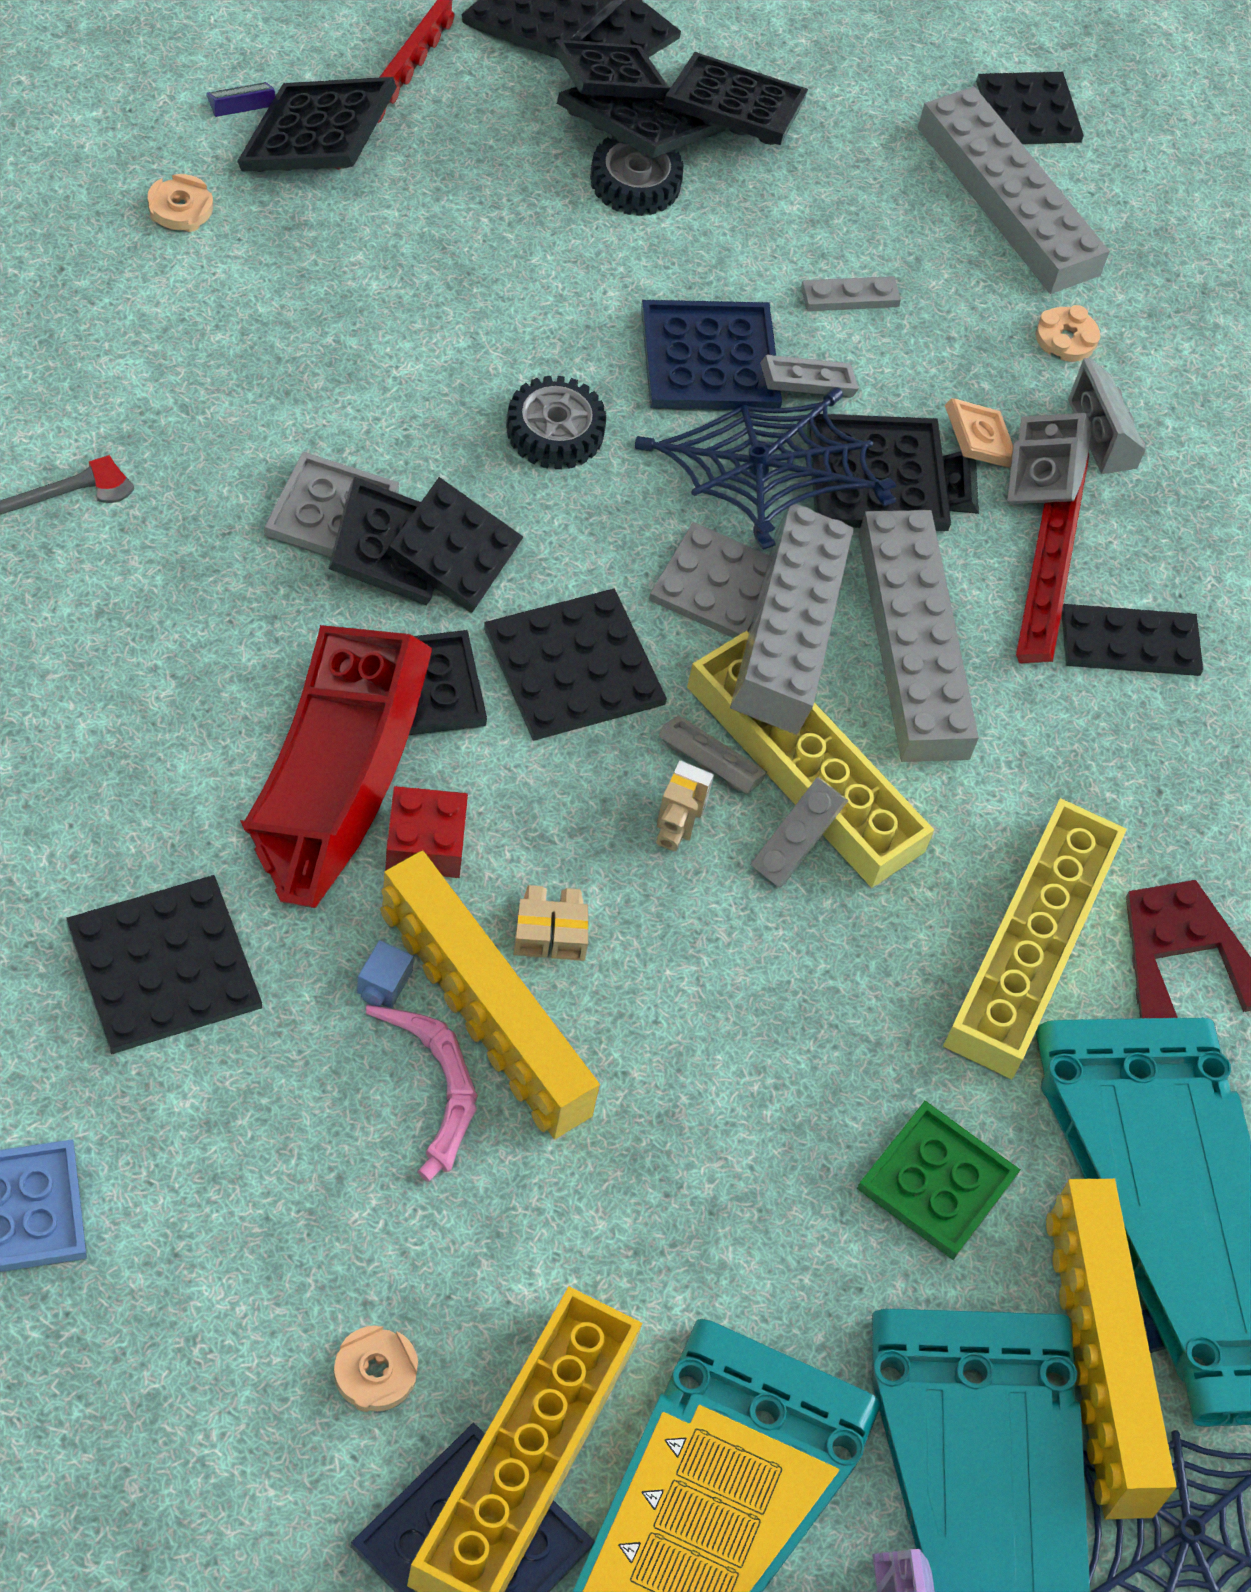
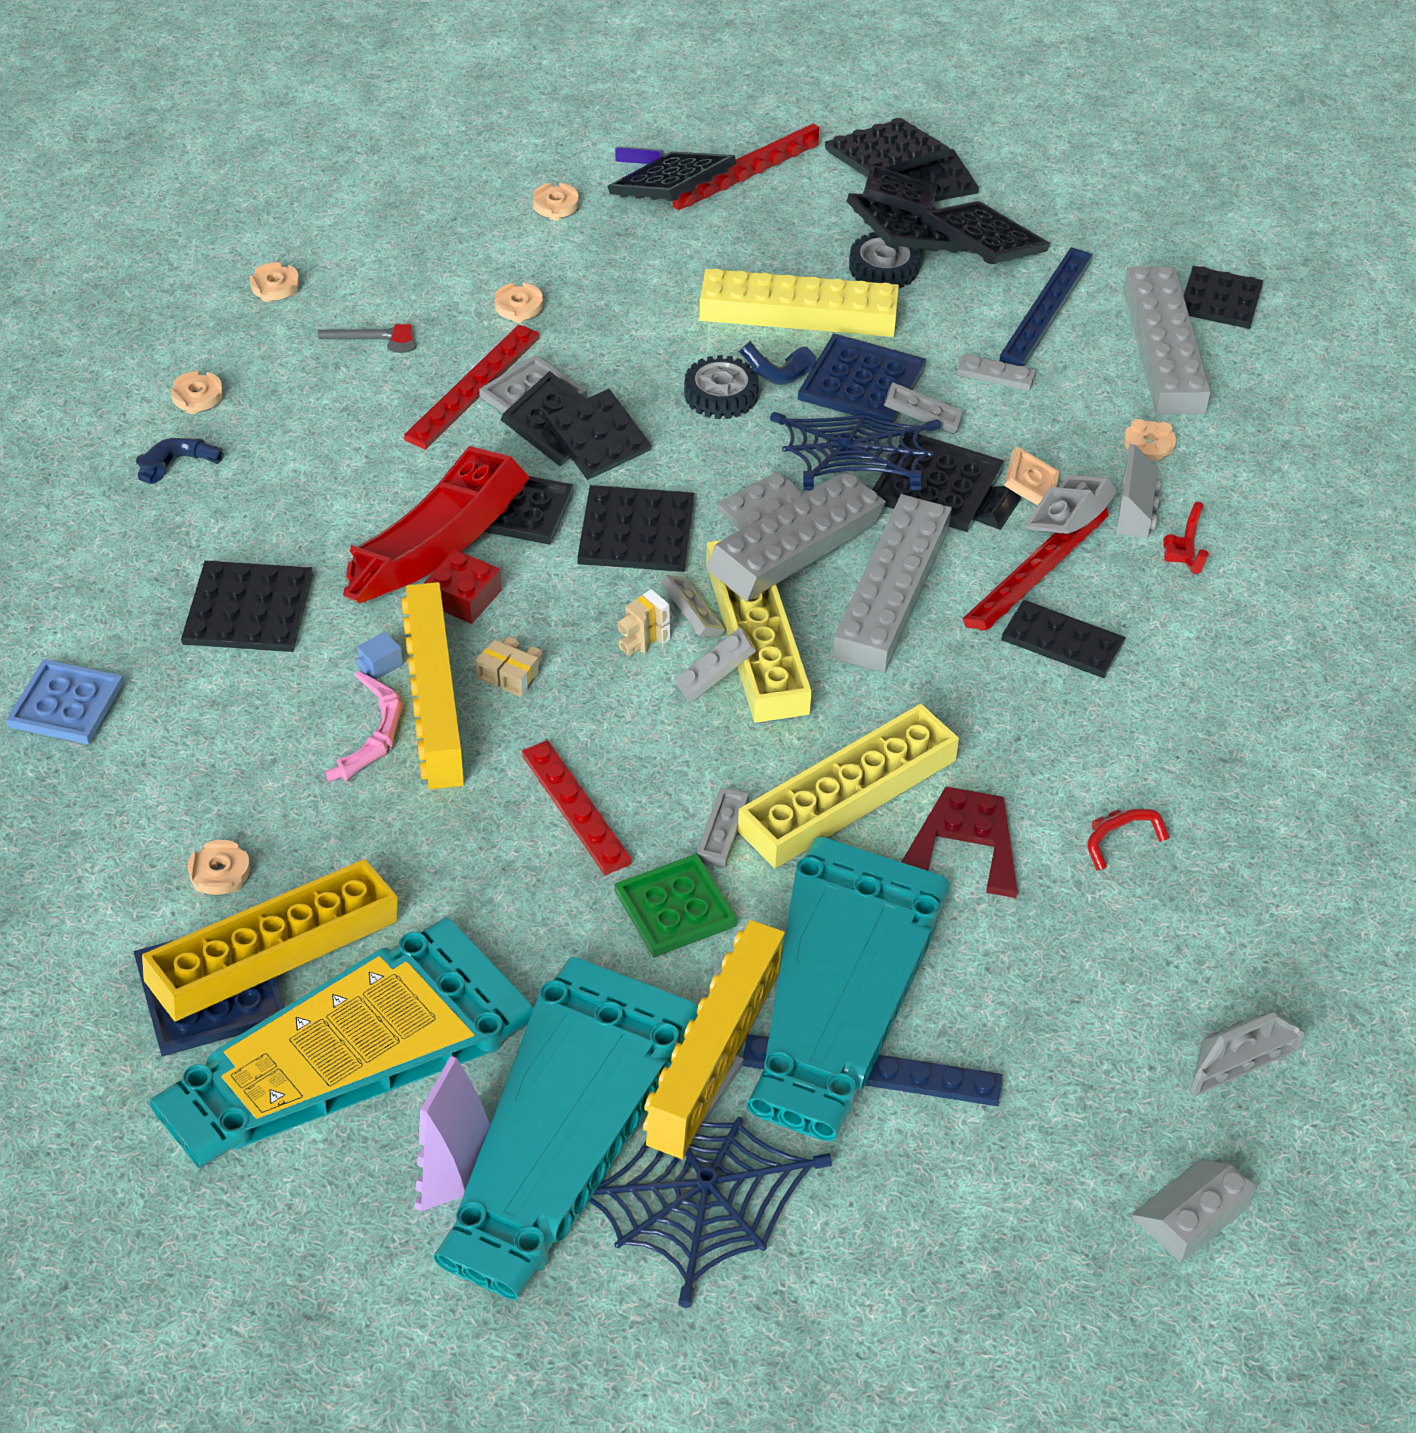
camera: 35 degrees right, 10 degrees down
(228, 390) = (518, 311): none -> light nougat plate
(245, 525) = (466, 391): none -> red plate
(575, 268) = (799, 302): none -> light yellow brick
(626, 368) = (796, 364): none -> dark blue piece
(744, 1091) = (576, 808): none -> red plate
(855, 184) = (1046, 307): none -> dark blue plate
(926, 1049) = (722, 827): none -> light grey plate
(1183, 462) = (1183, 549): none -> red piece

